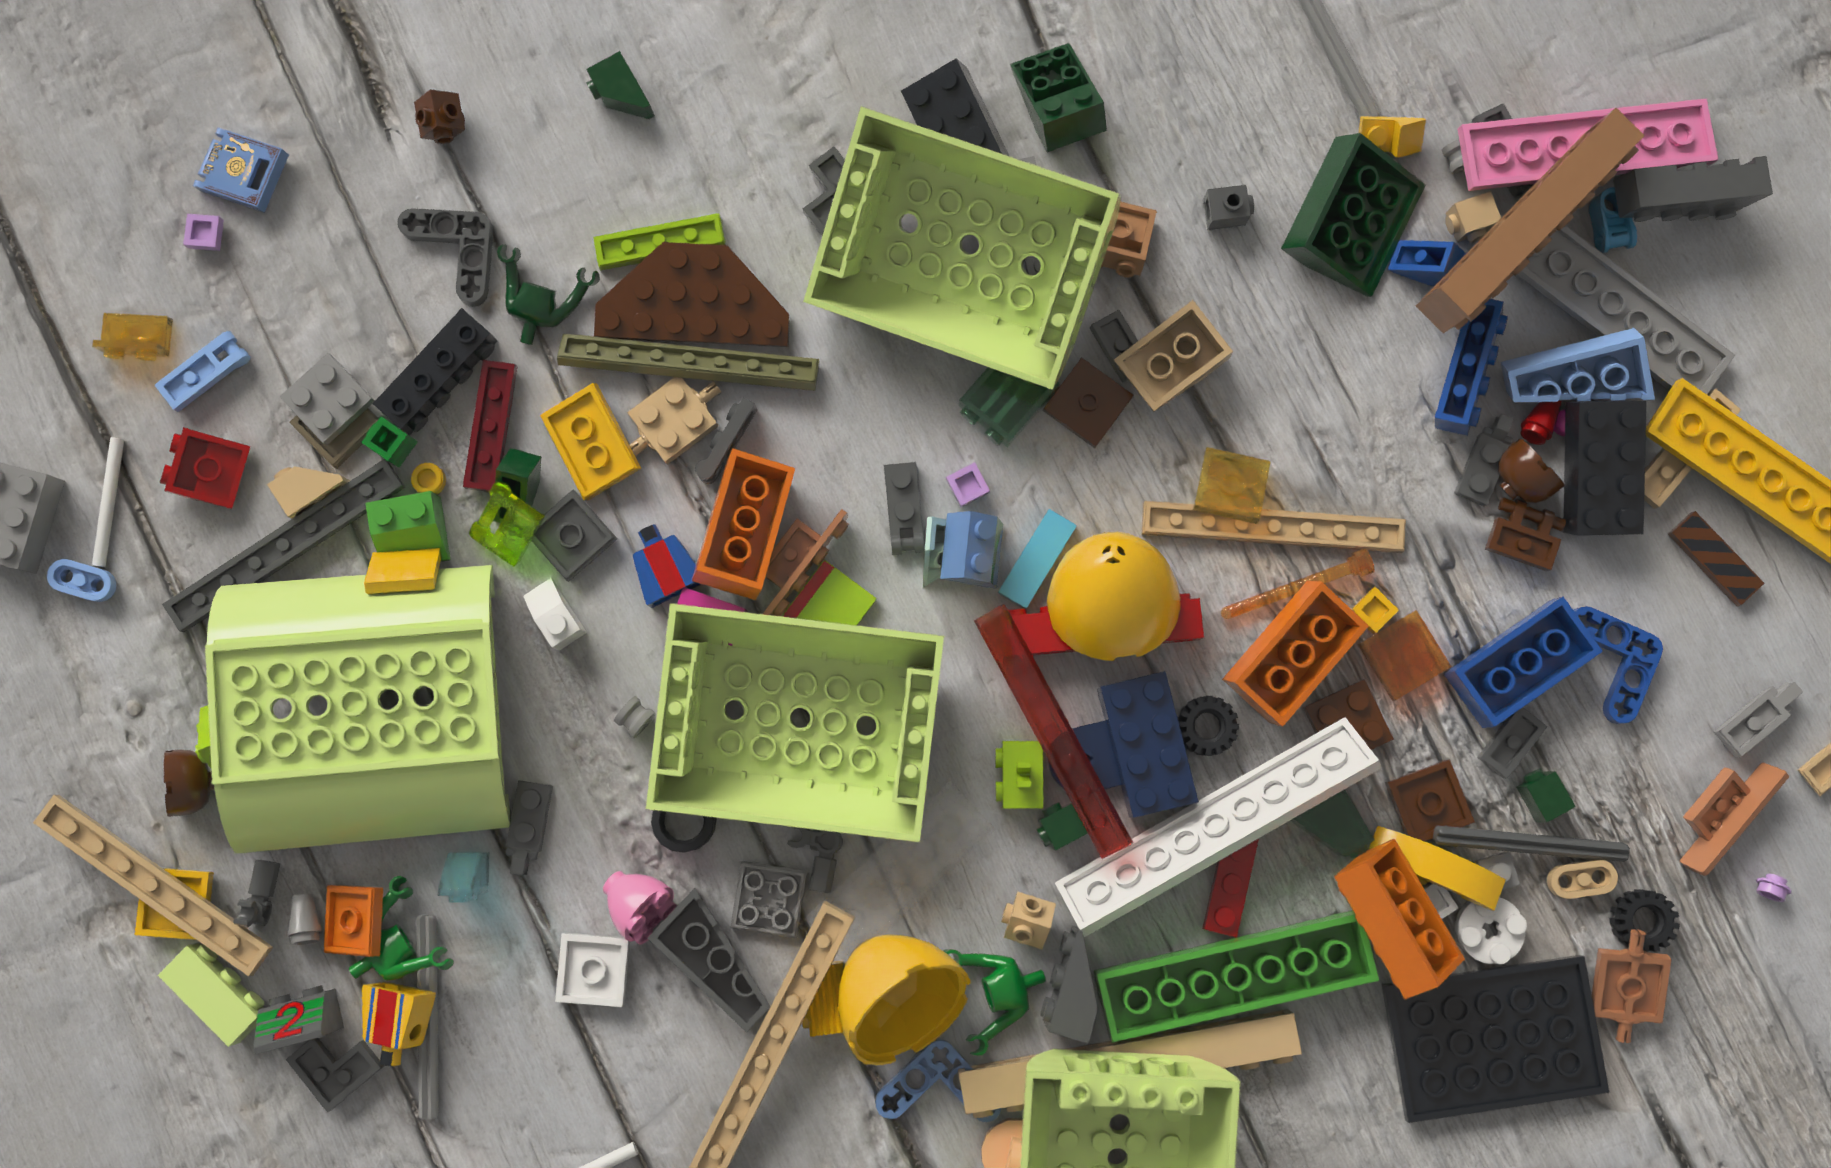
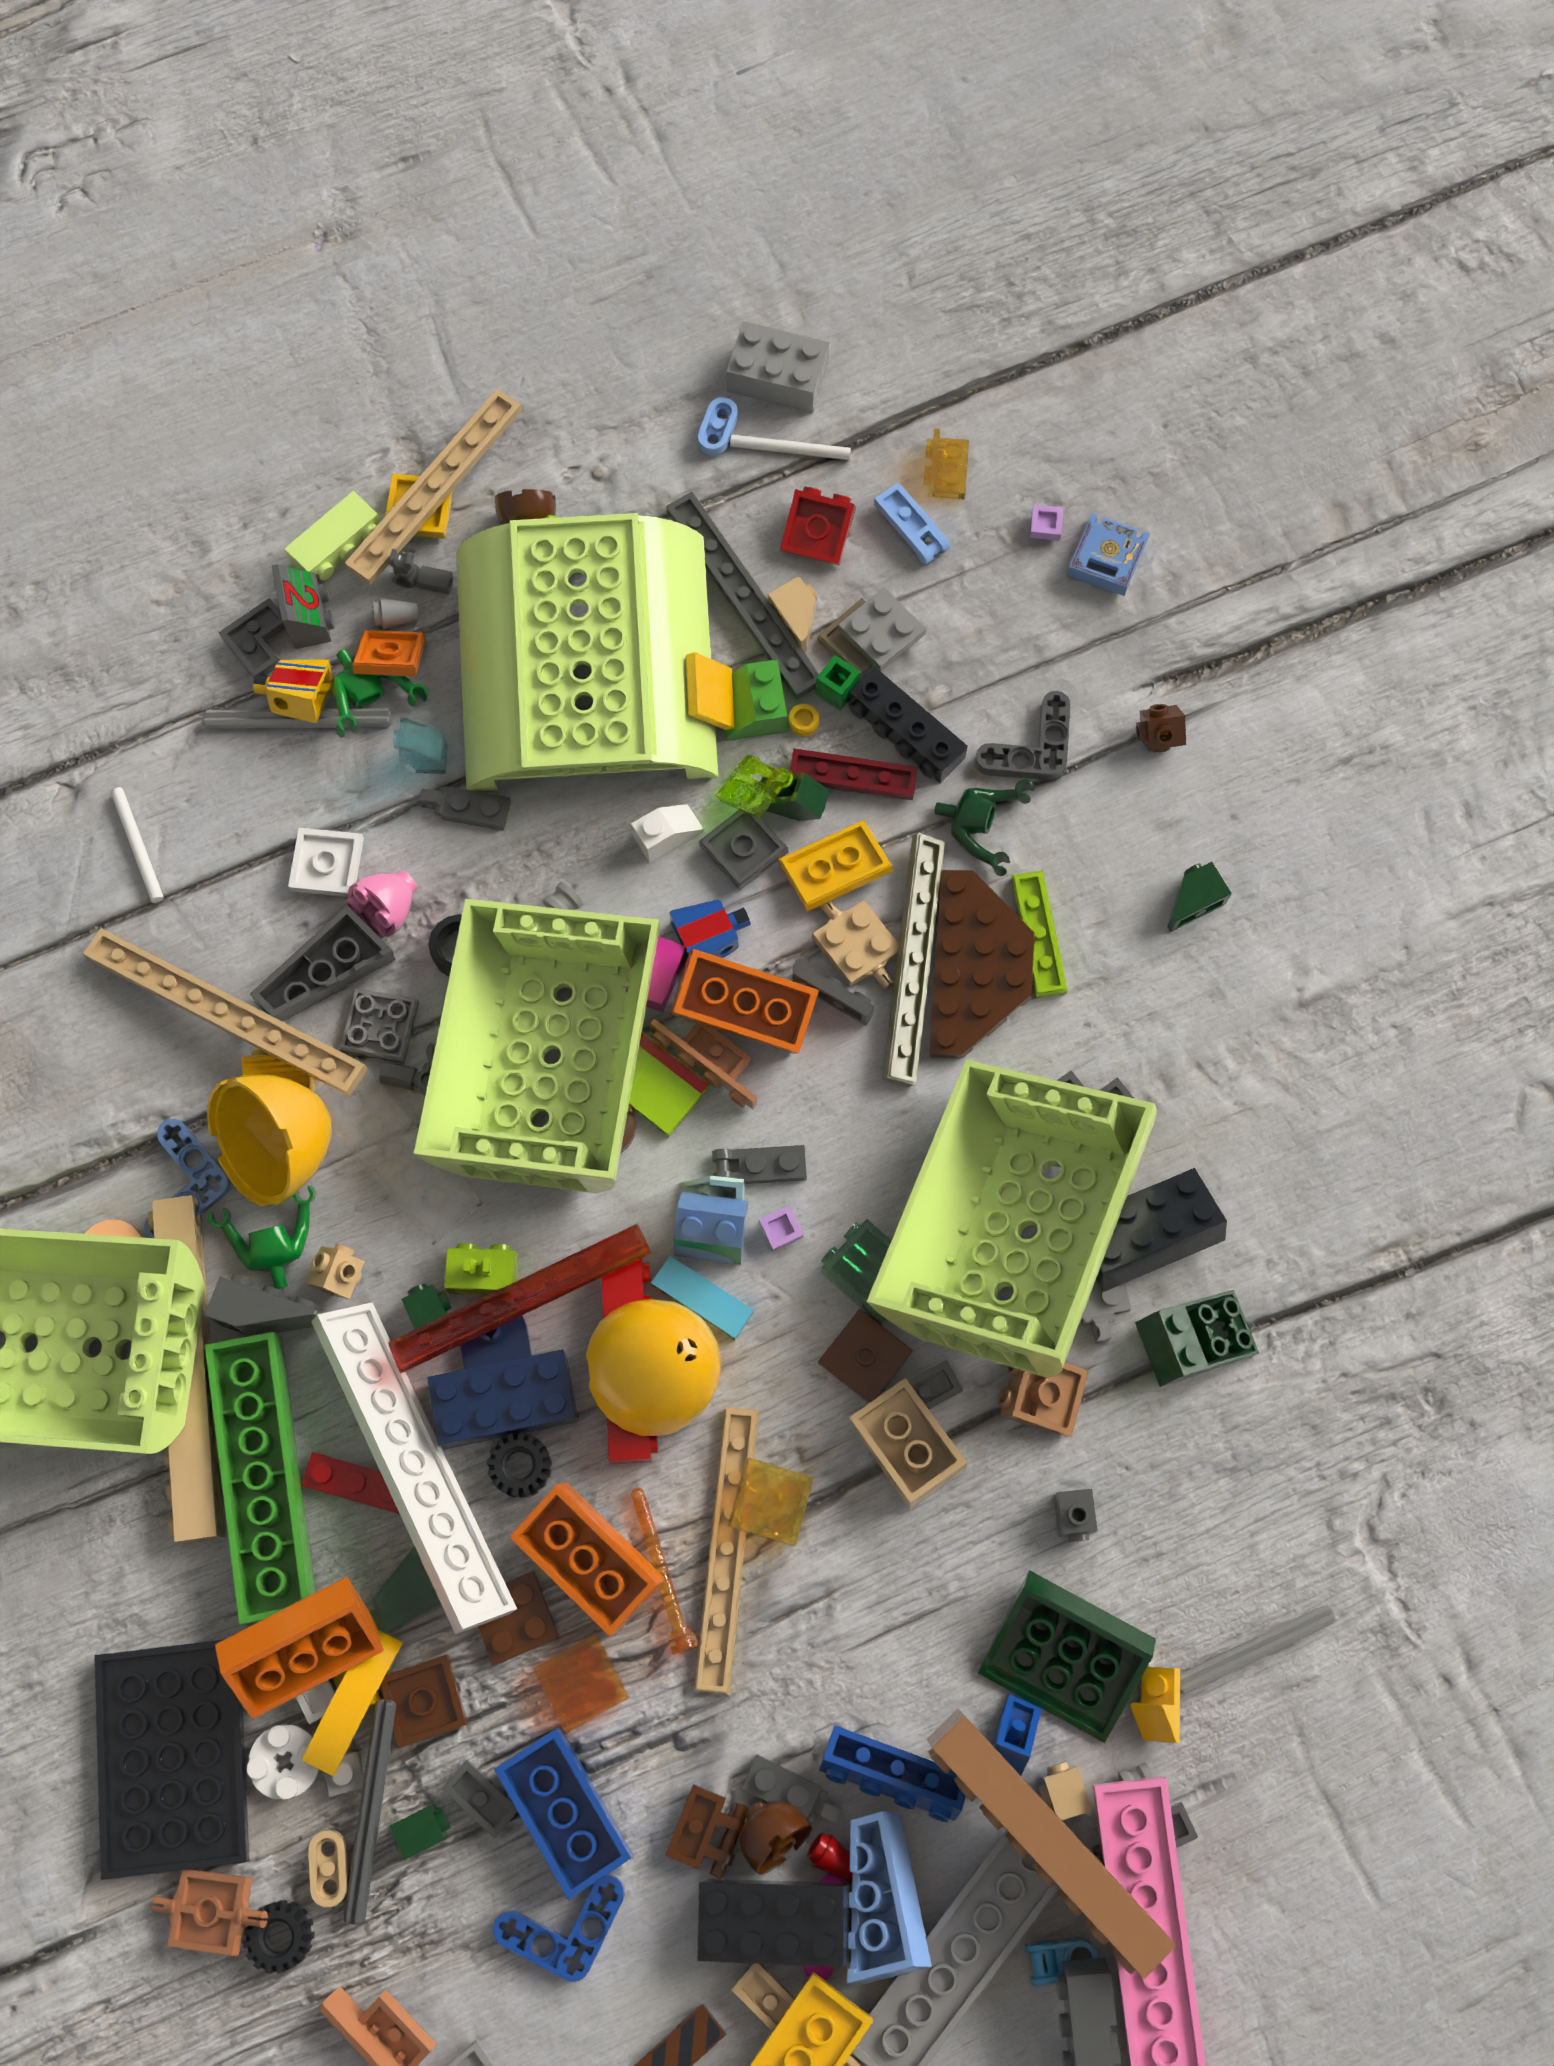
camera: 90 degrees right, 10 degrees down
(1375, 610) = (631, 1652): yellow plate -> none

